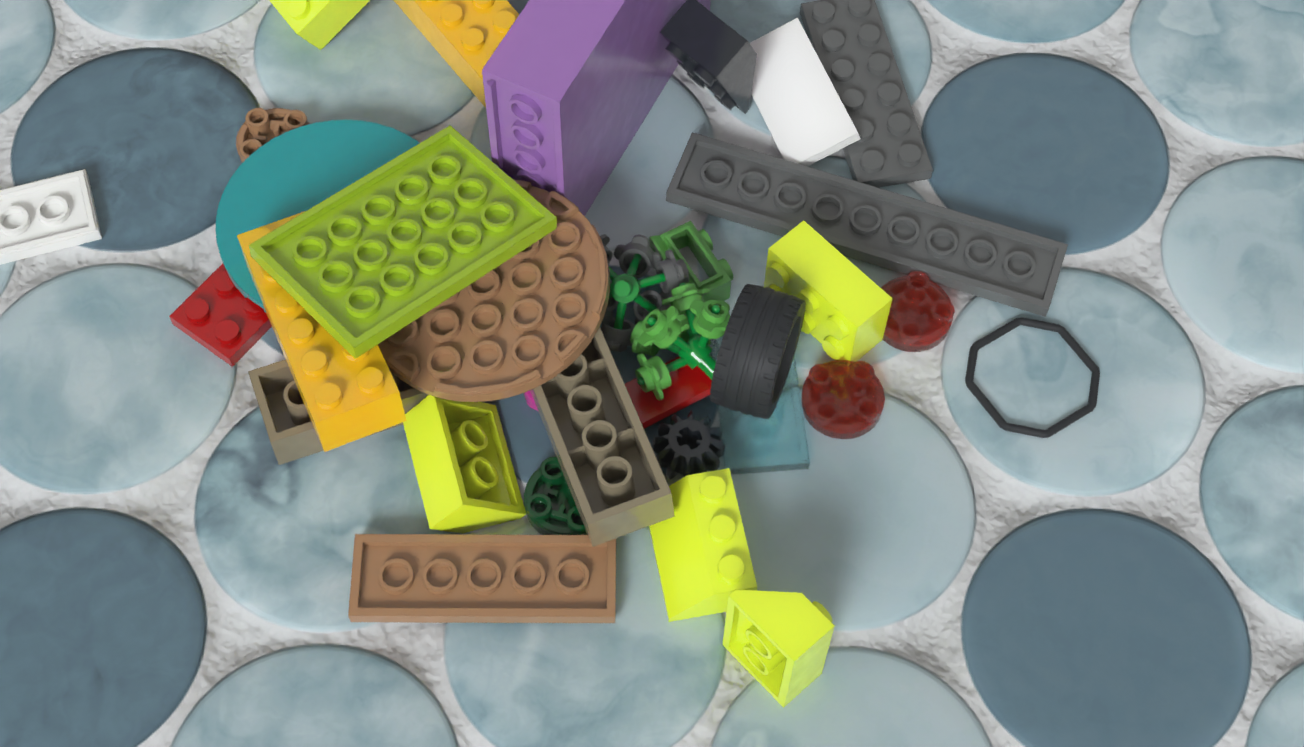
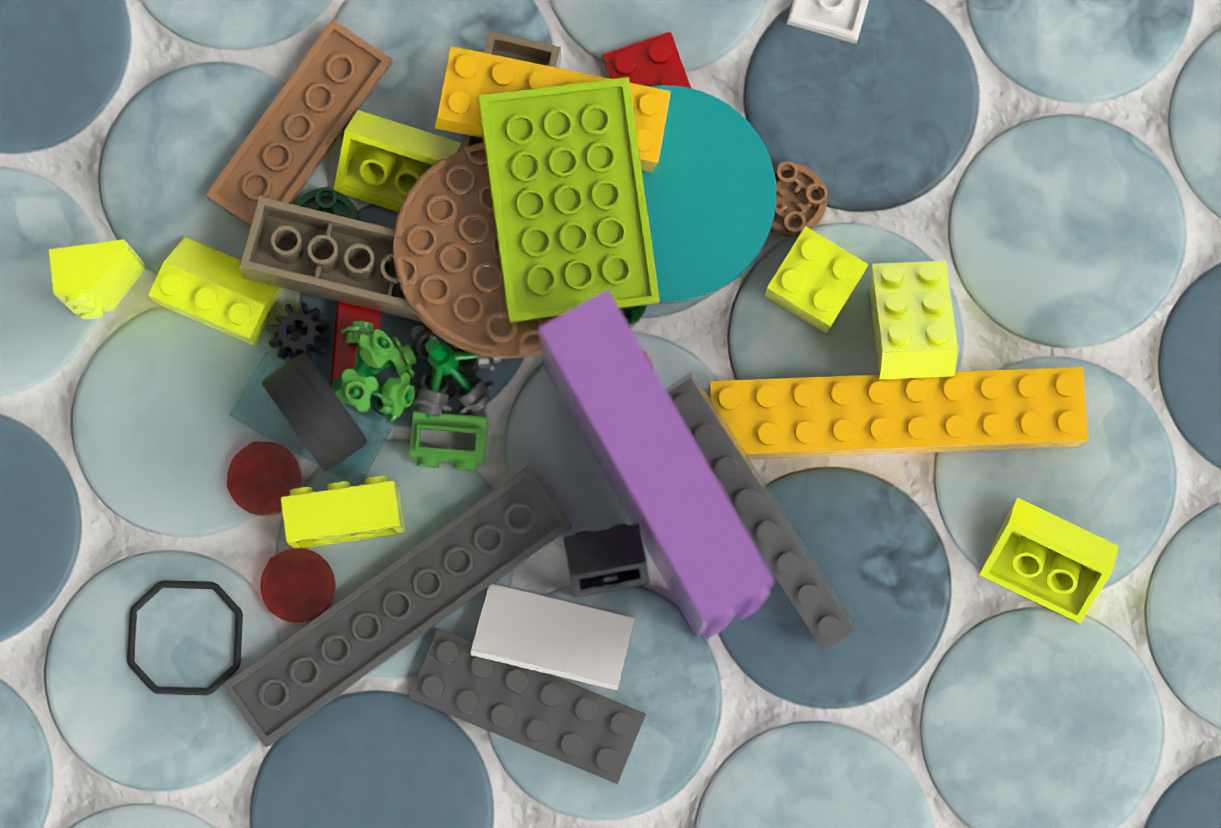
camera: 125 degrees right, 20 degrees up
(339, 76) = (816, 280): none -> neon yellow brick

